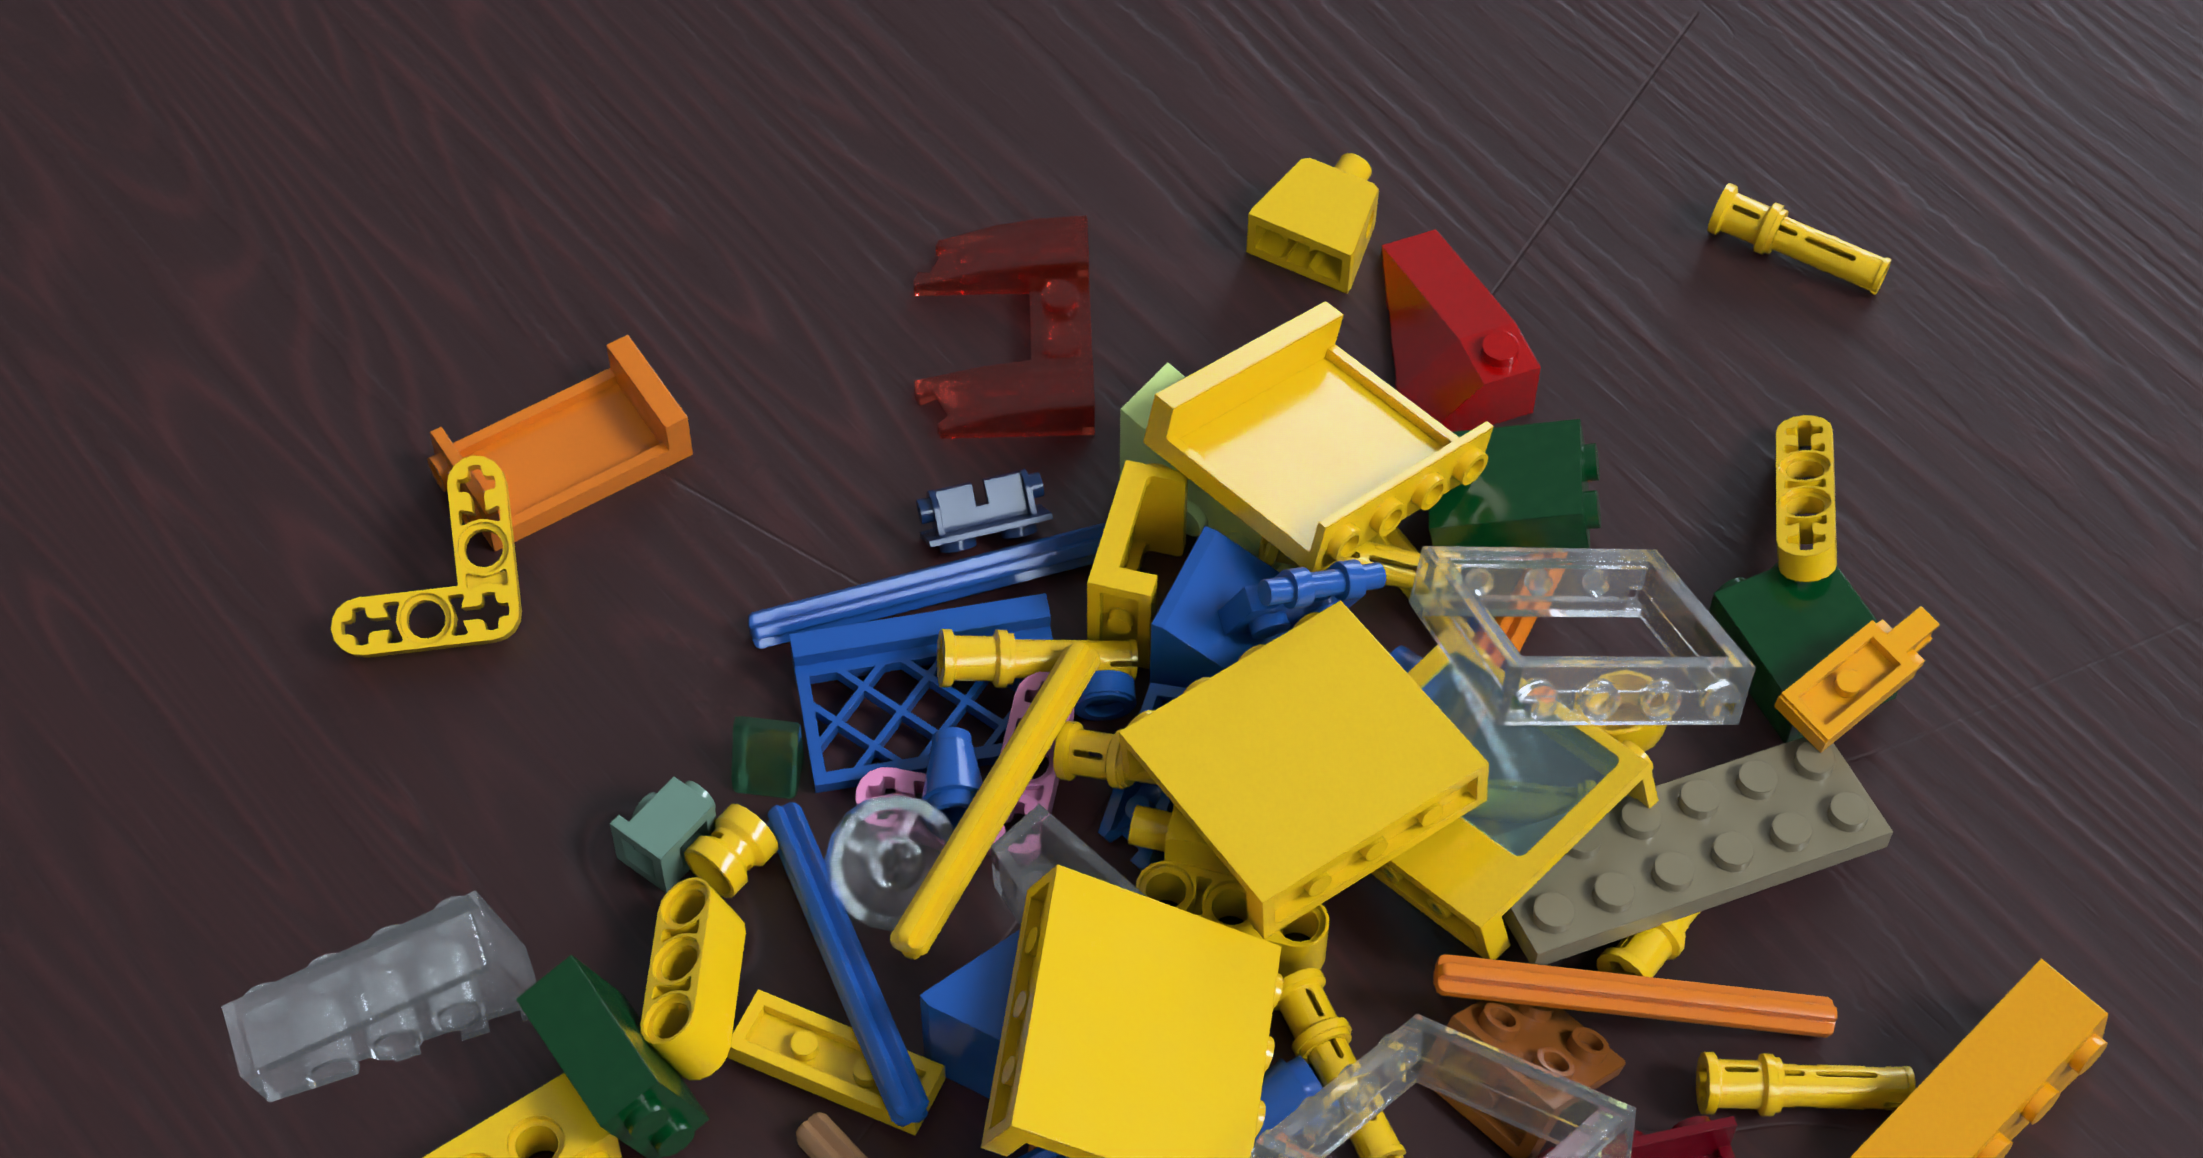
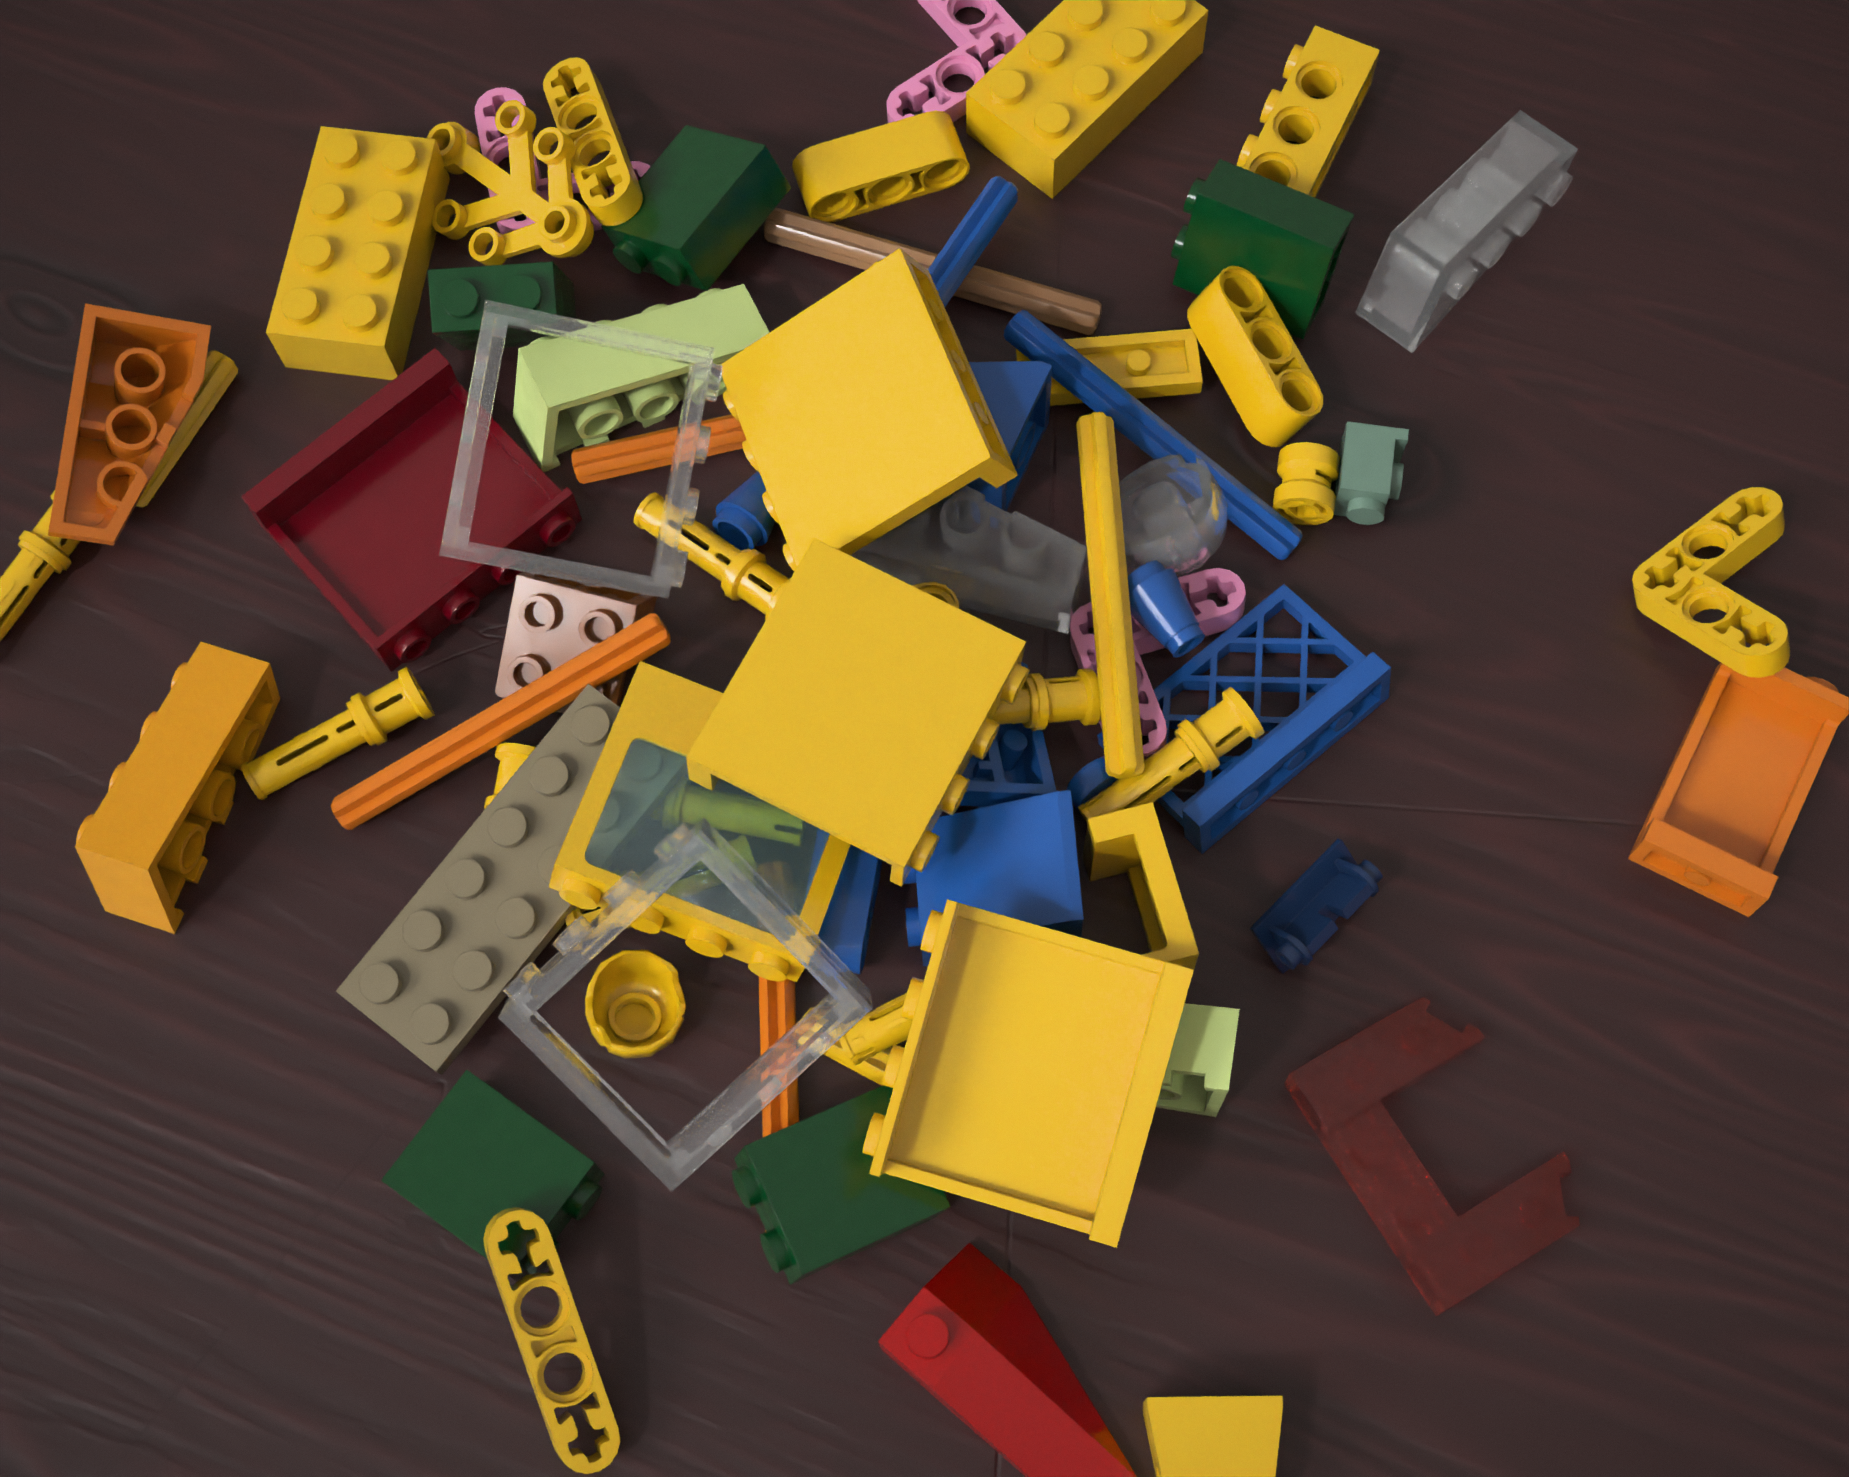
camera: 155 degrees right, 15 degrees up
(766, 757) = (1339, 585): clear green slope -> none
(927, 586) = (1318, 824): blue axle -> none
(1296, 592) = (960, 864): blue plate -> none
(1856, 678) = (413, 1115): light orange hinge -> none

